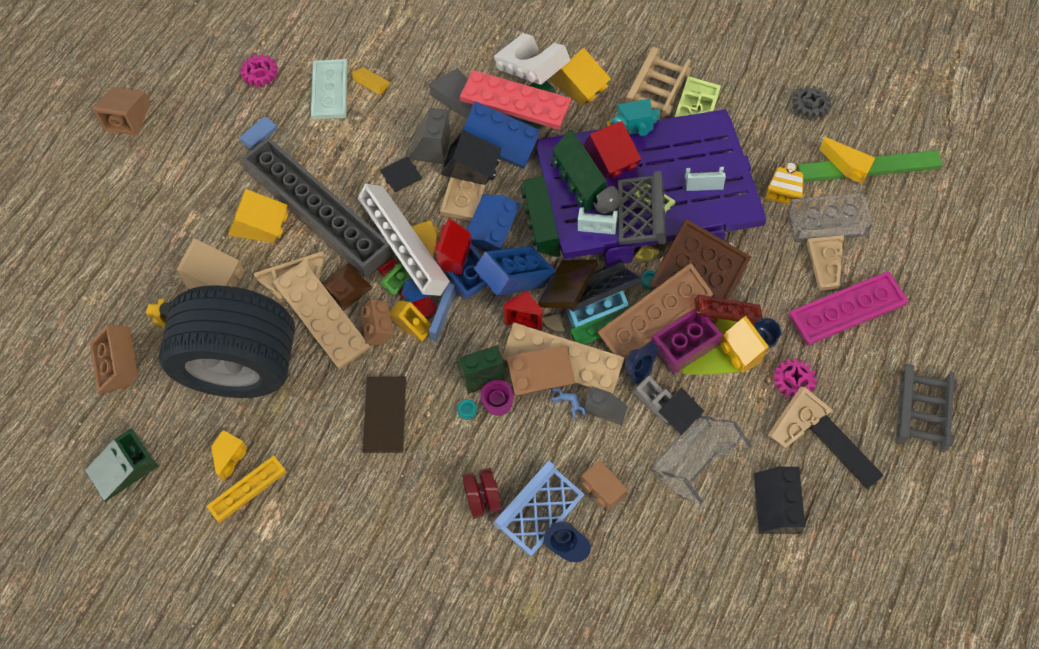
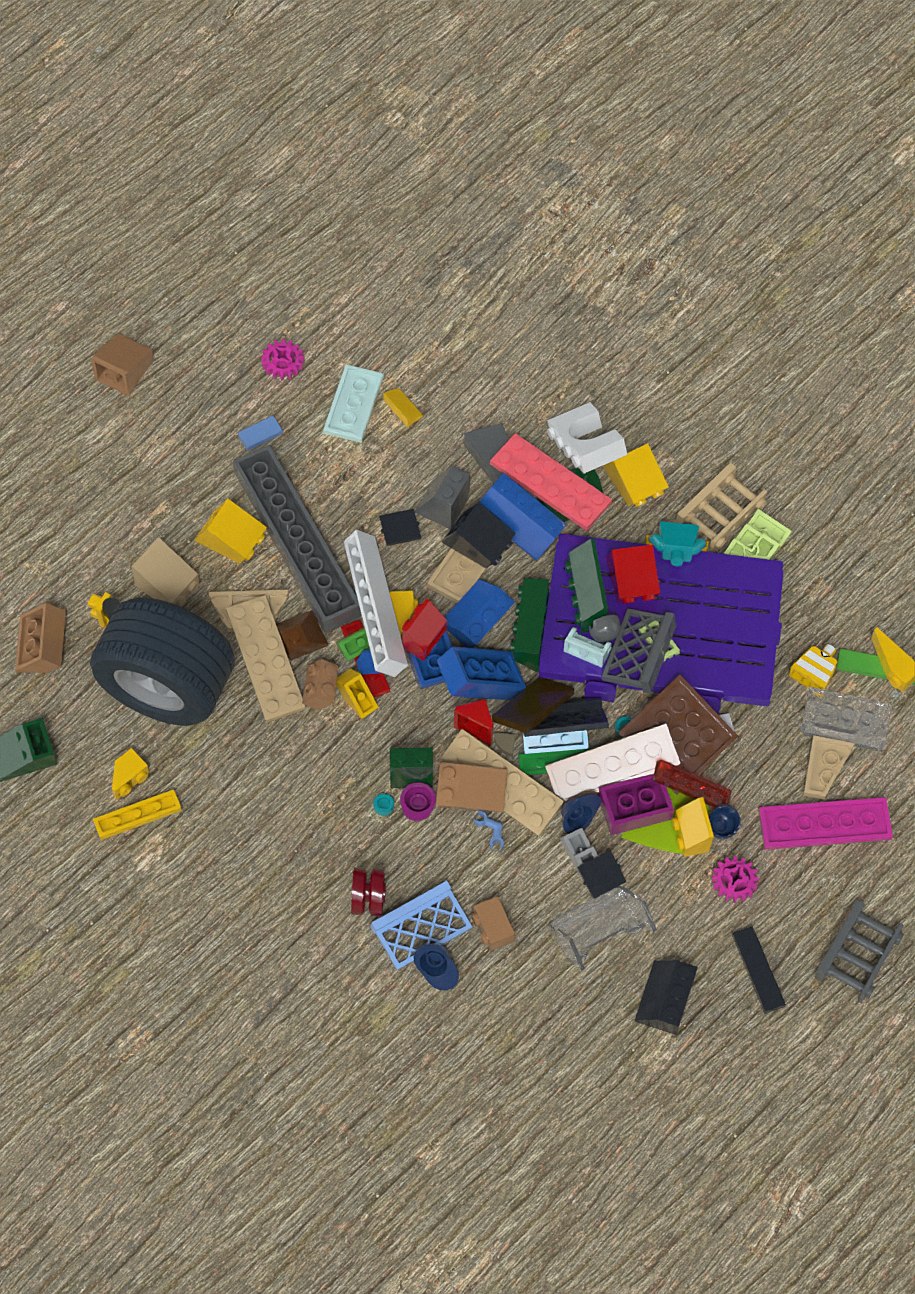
camera: 15 degrees right, 0 degrees up
(384, 415) = (298, 783): dark brown tile -> none
(442, 312) = (392, 694): medium blue tile -> none
(605, 406) = (526, 845): dark grey slope -> none
(646, 254) = (633, 698): light yellow tile -> none
(705, 181) = (721, 637): light aqua hinge -> none
(799, 415) = (721, 918): tan wing -> none
(811, 102) = (877, 585): dark grey gear -> none

